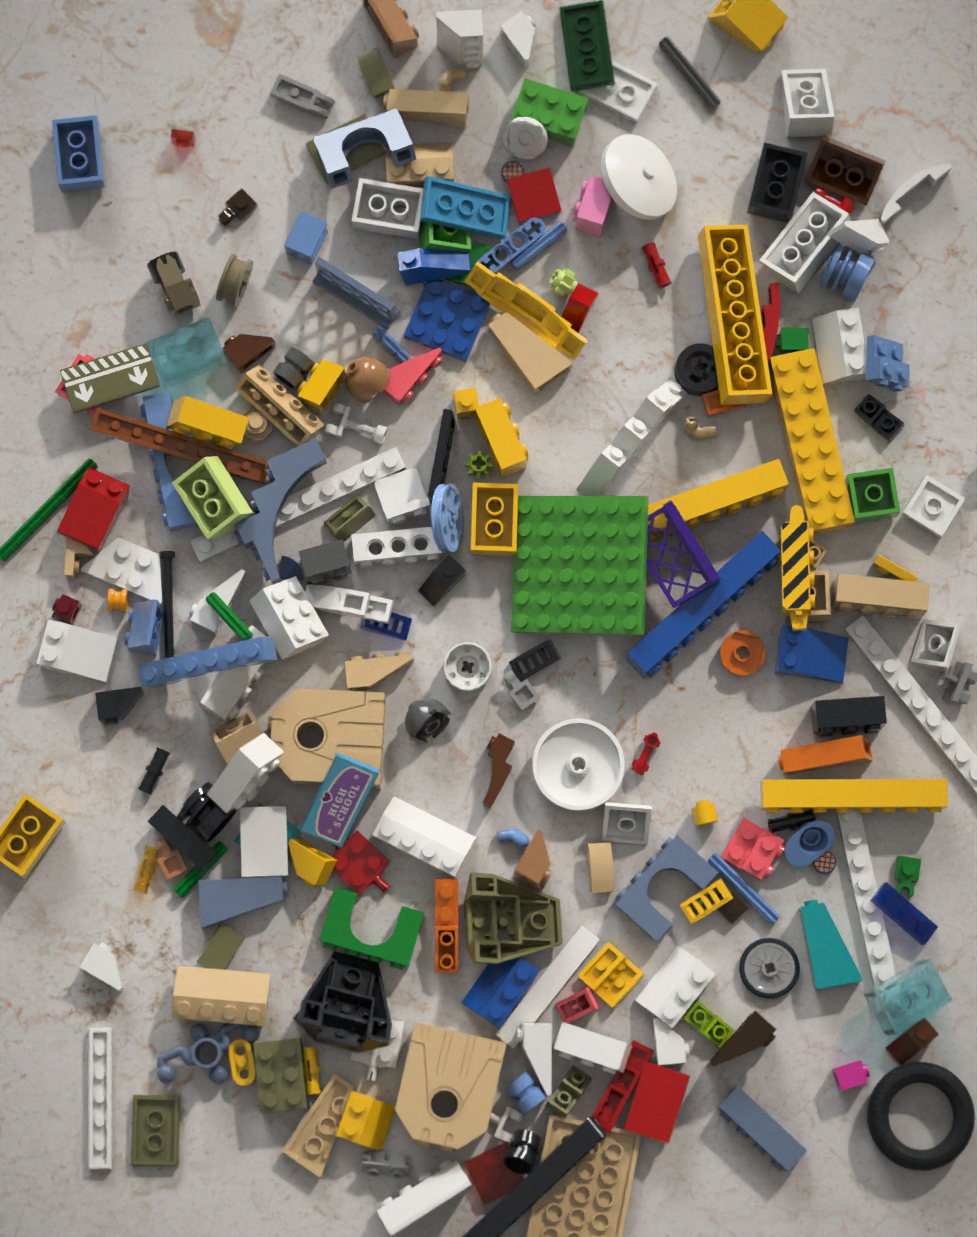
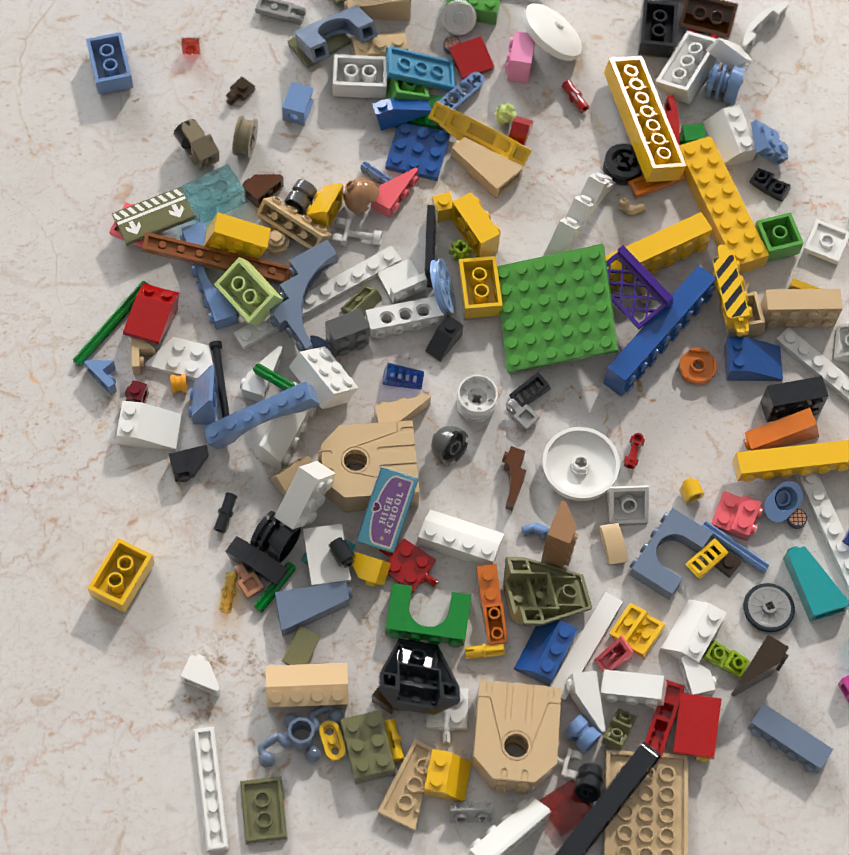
camera: 10 degrees left, 15 degrees down
(26, 572) = (101, 372): none -> medium blue slope
(280, 844) = (342, 552): none -> black brick
(349, 602) = (372, 359): white slope -> none
(355, 294) = (346, 142): sand blue fence -> none
(430, 978) = (484, 651): none -> yellow axle
(538, 246) = (482, 92): medium blue axle -> none
(790, 821) = (762, 489): black pin -> none

